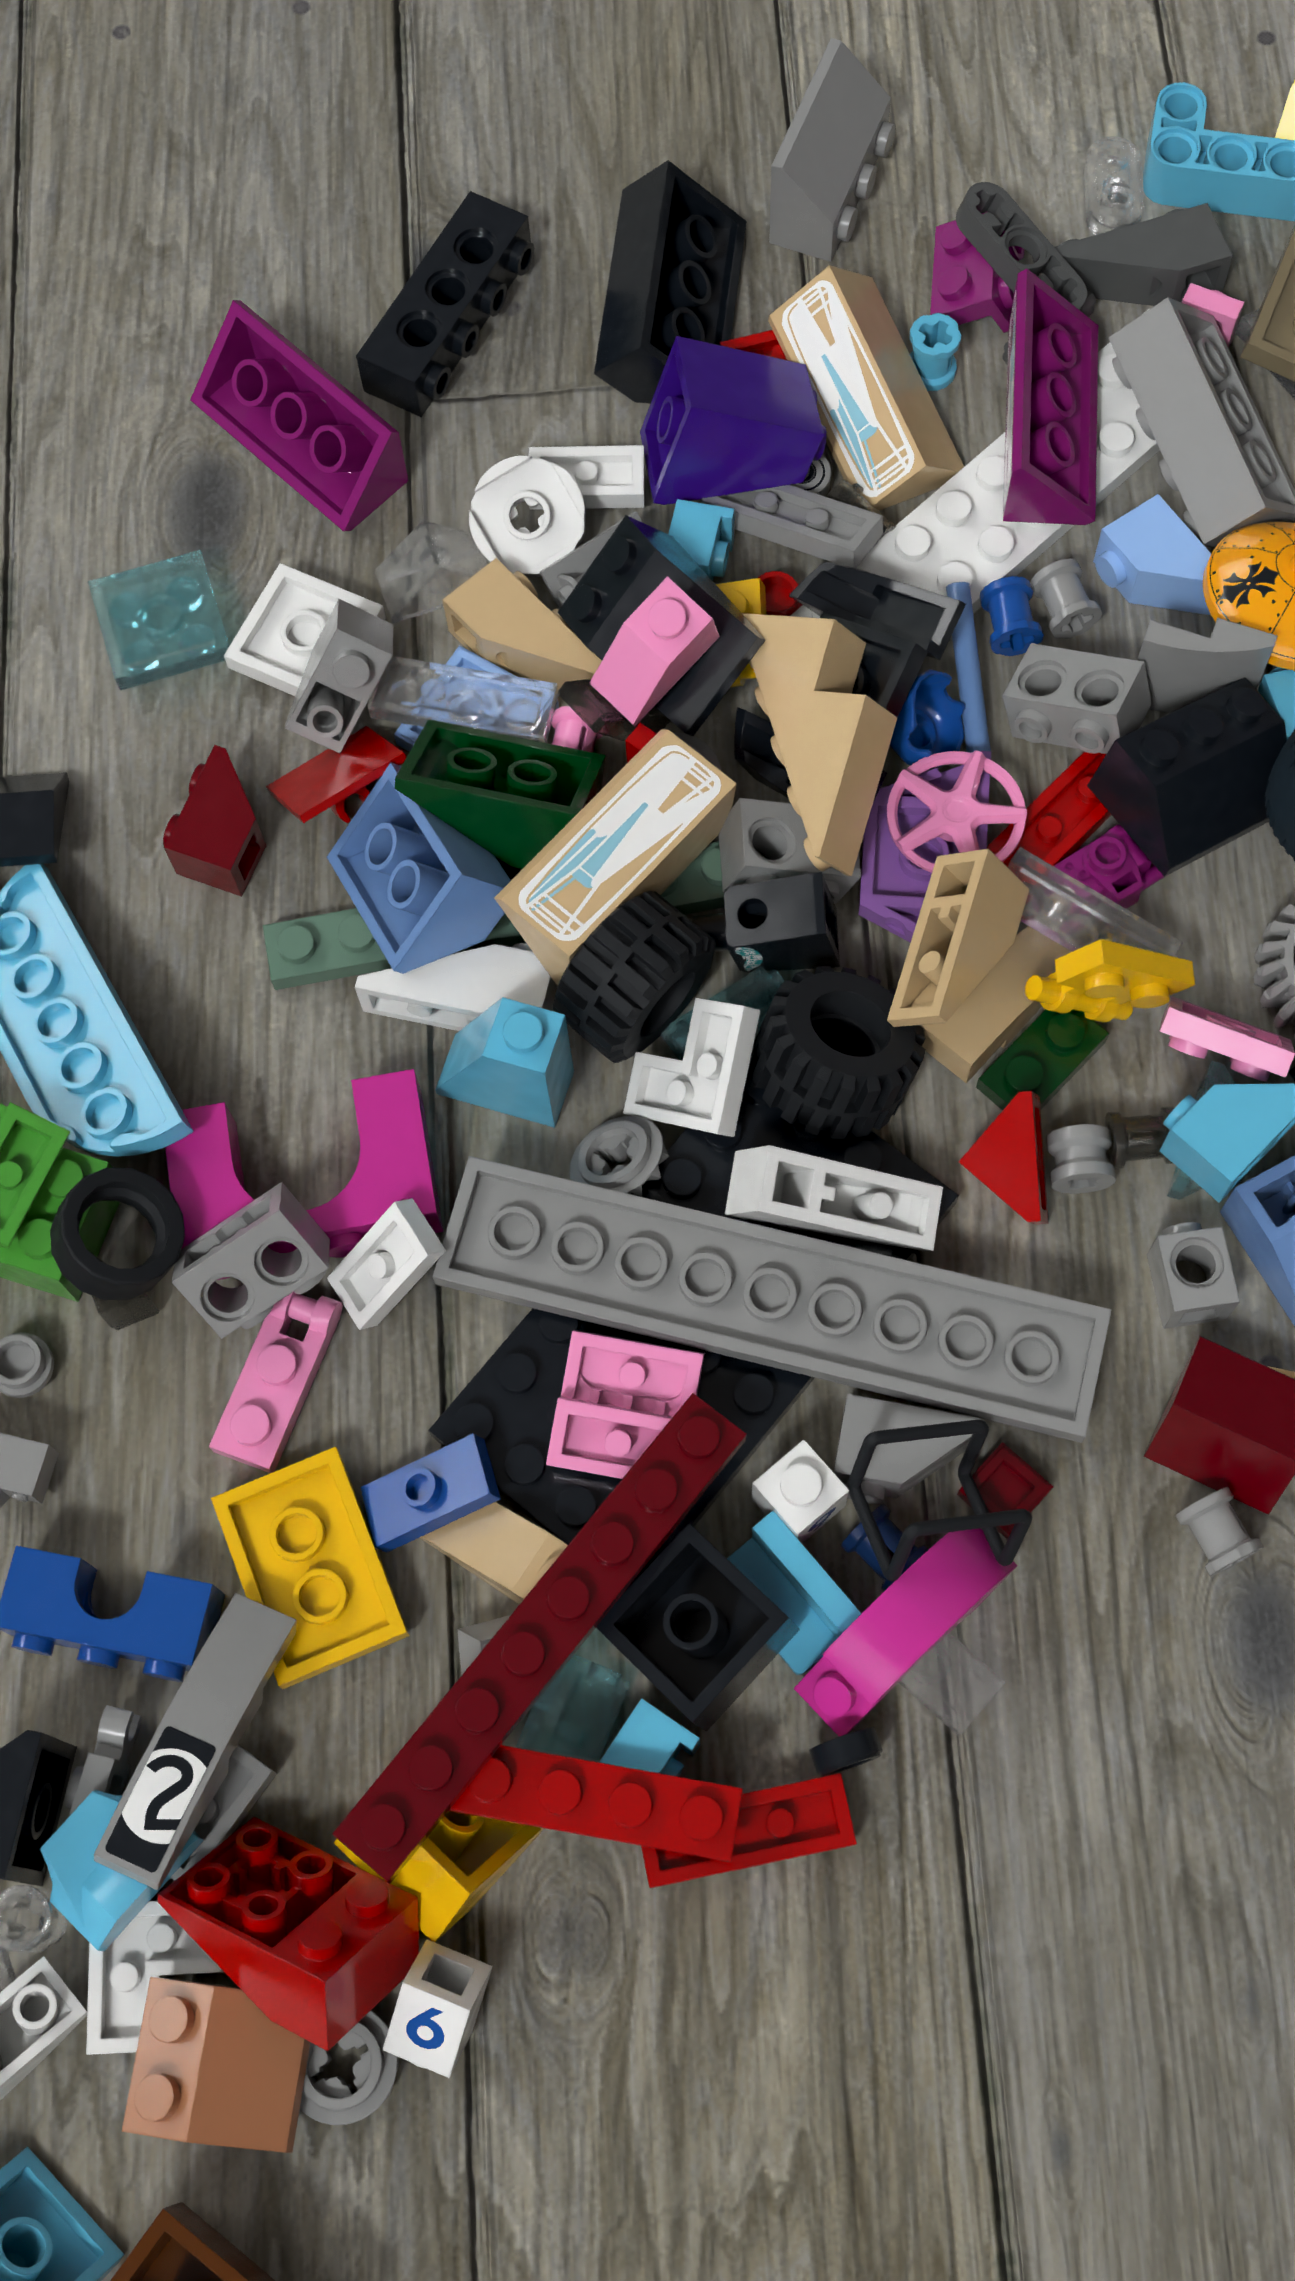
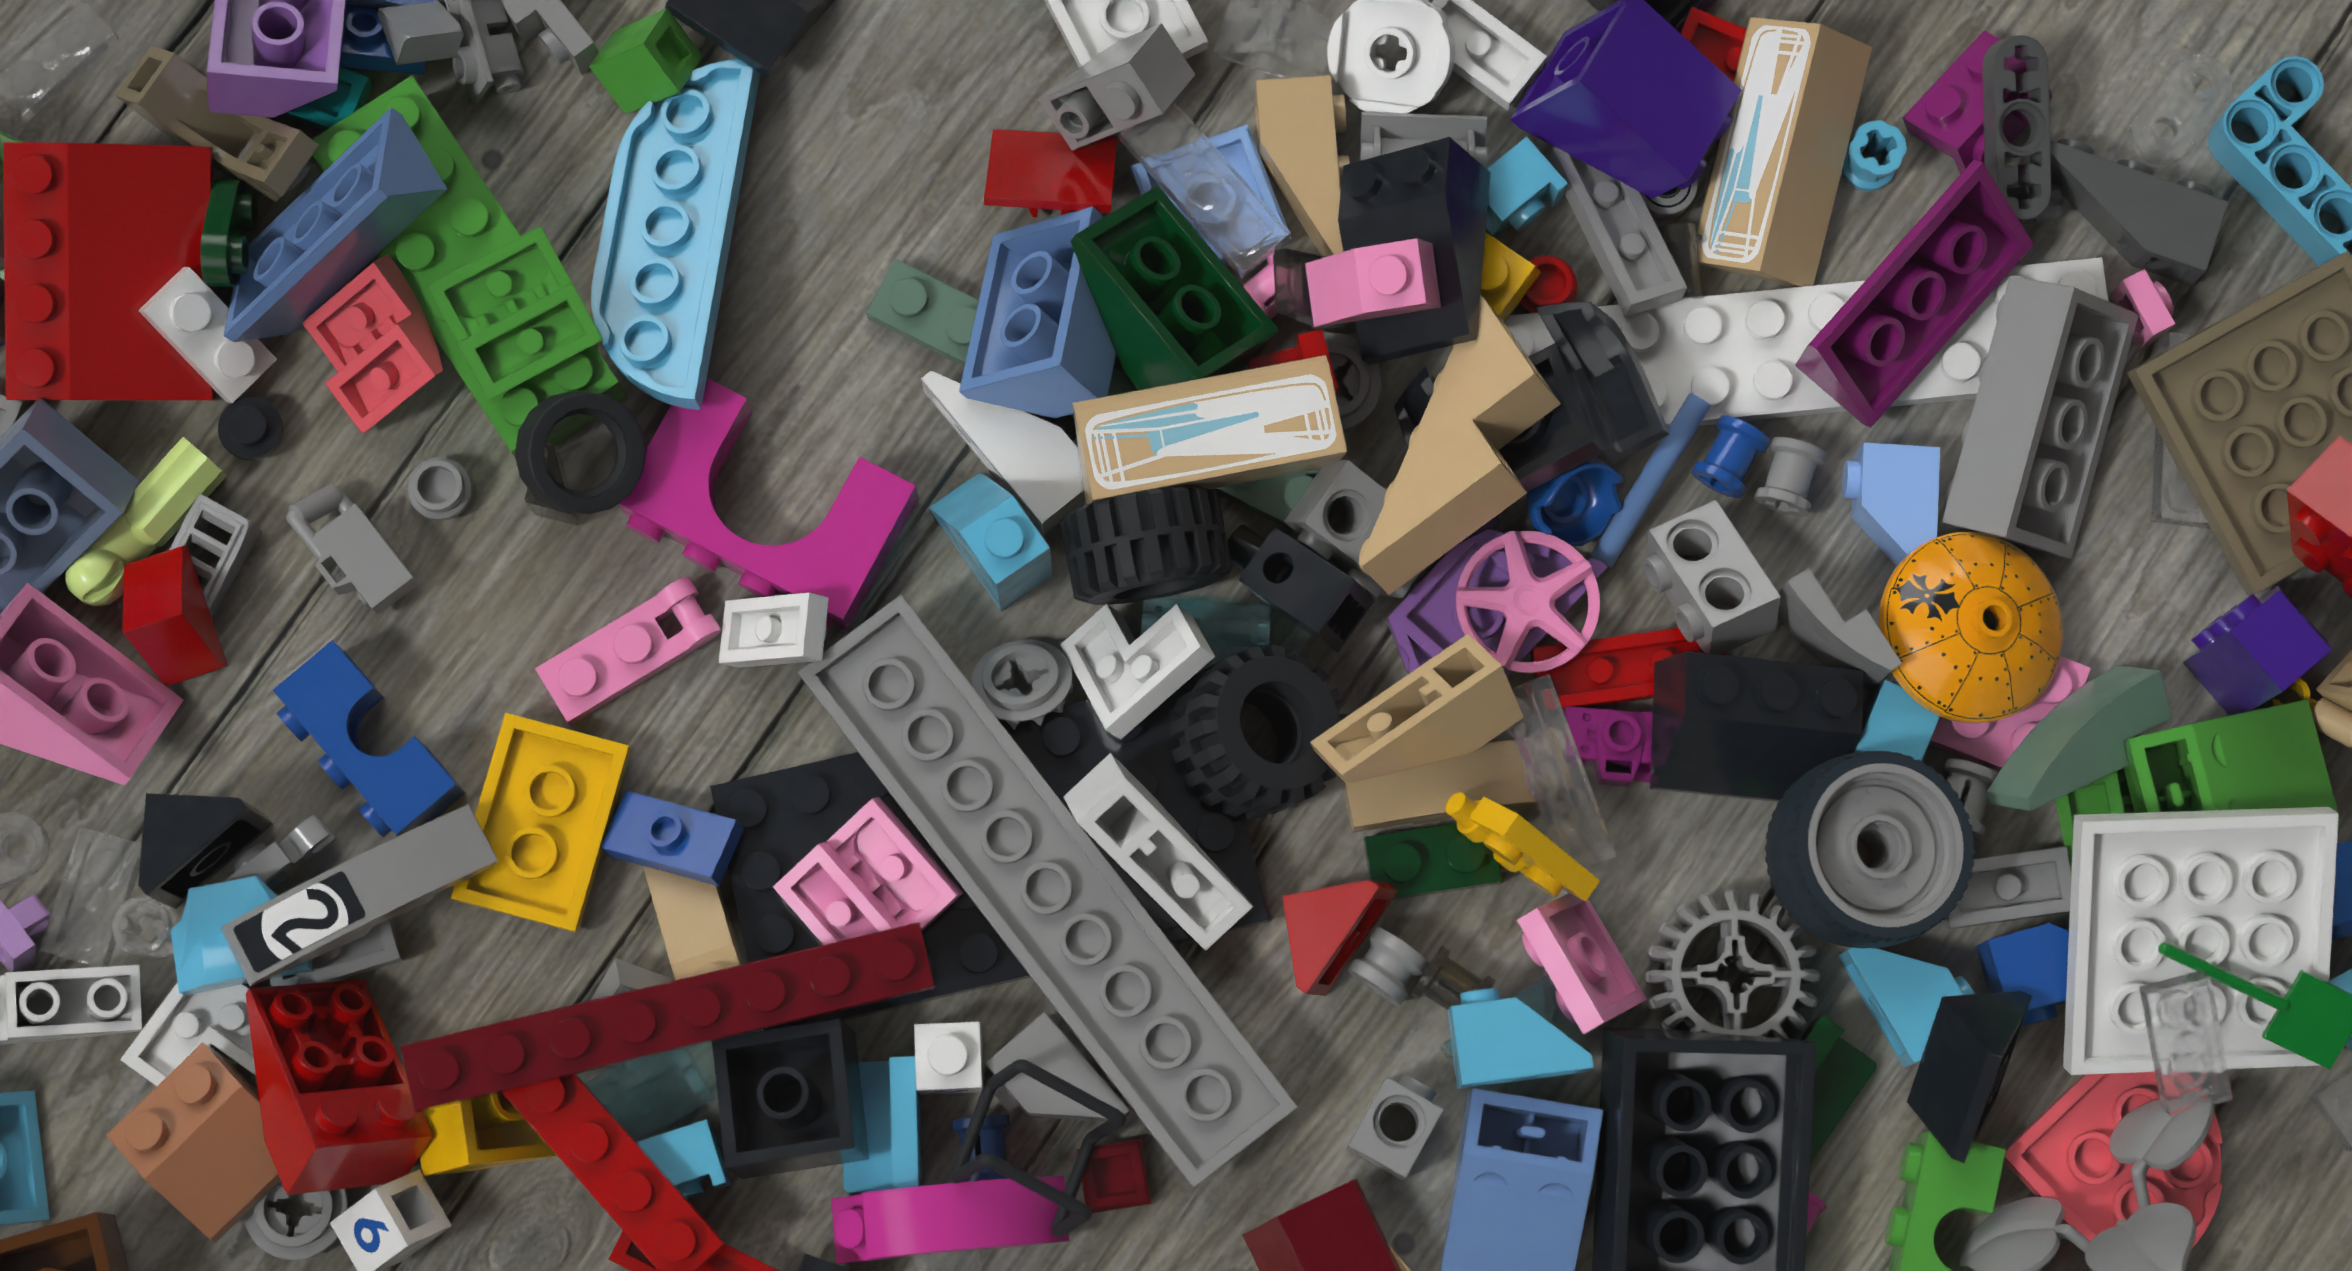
camera: 30 degrees right, 10 degrees up
(216, 831) = (923, 144): dark red slope -> none
(241, 1251) = (668, 552): light grey brick -> none

